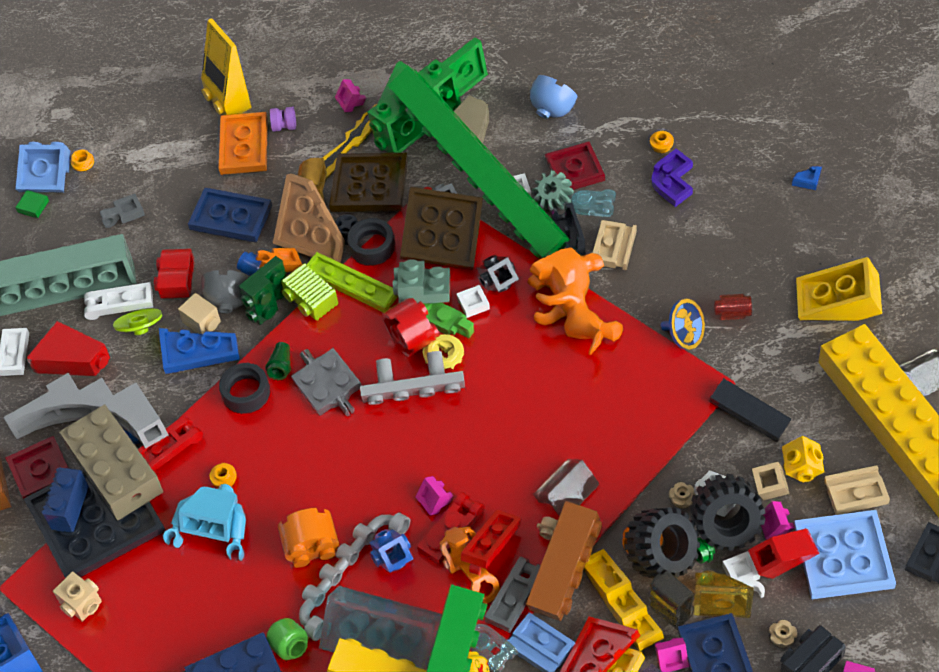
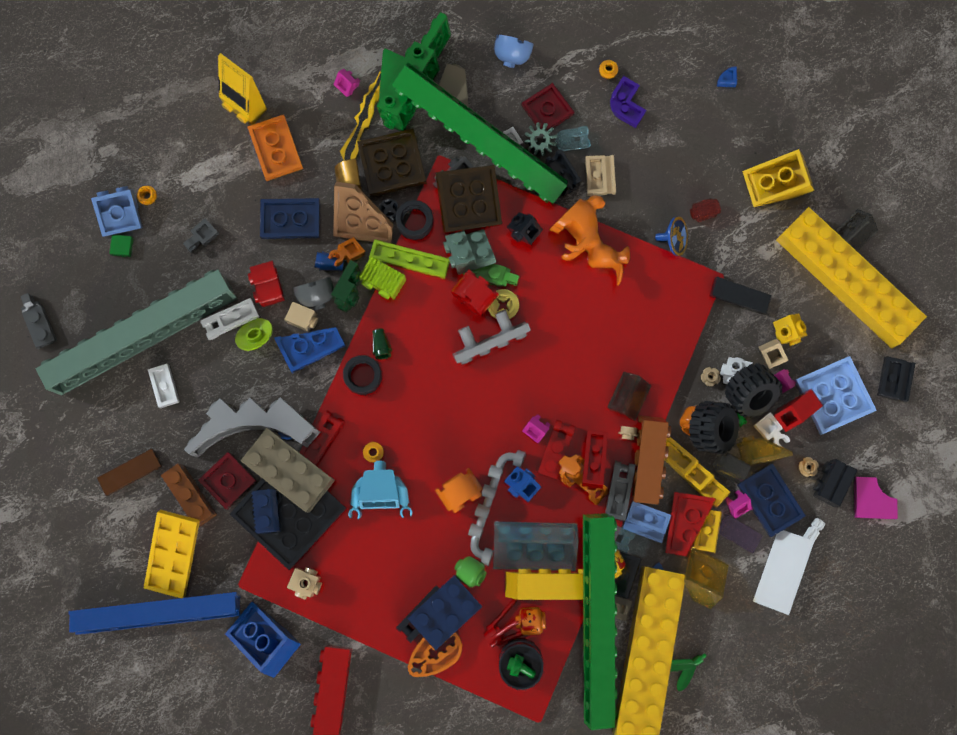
camera: 25 degrees left, 25 degrees up
(68, 351) = (210, 376): red slope -> none
(283, 119) = (295, 118): medium lavender wheel -> none
(326, 382) = (422, 352): flat silver plate -> none
(473, 301) = (511, 255): white plate -> none
(856, 490) = (831, 342): tan plate -> none

